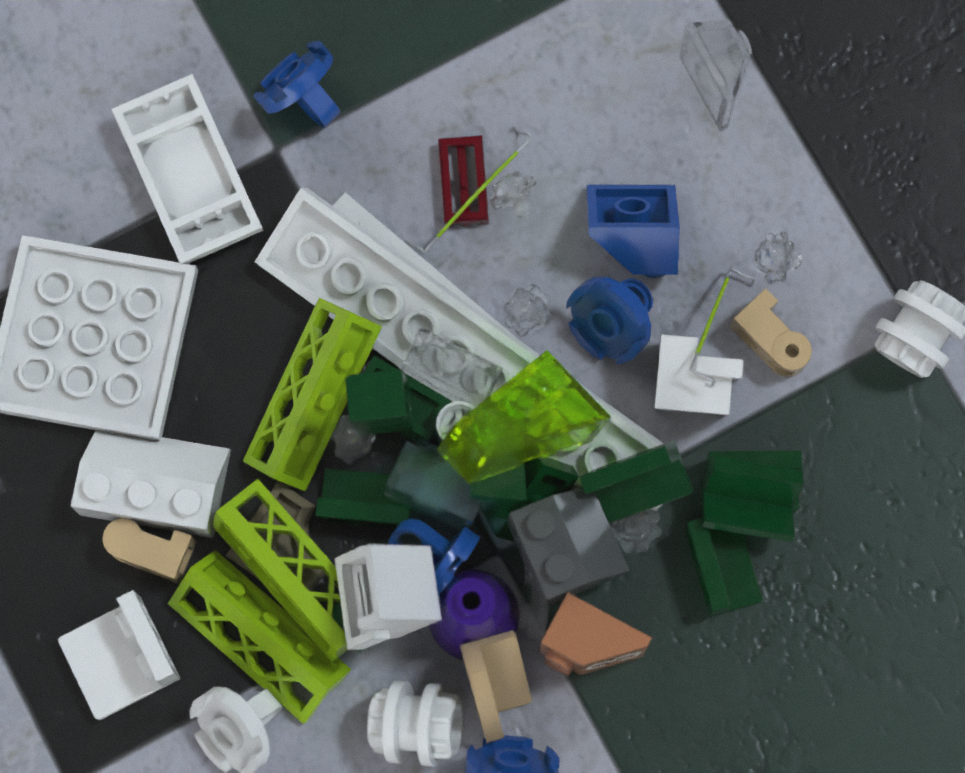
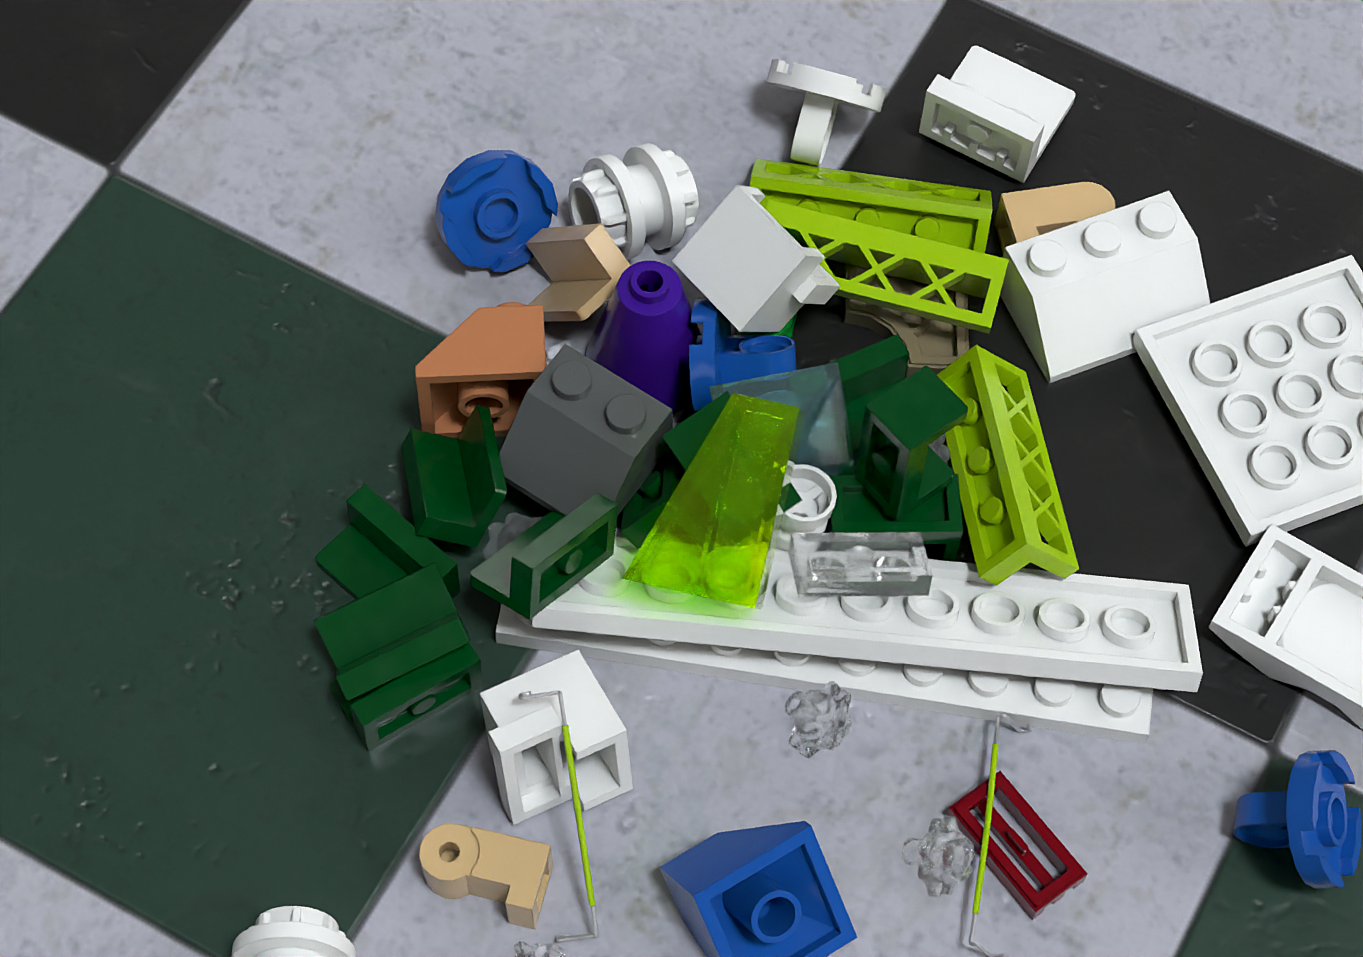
camera: 140 degrees right, 15 degrees down
(611, 317) = (707, 759): blue tile -> none
(654, 584) = (455, 481): none -> dark green panel

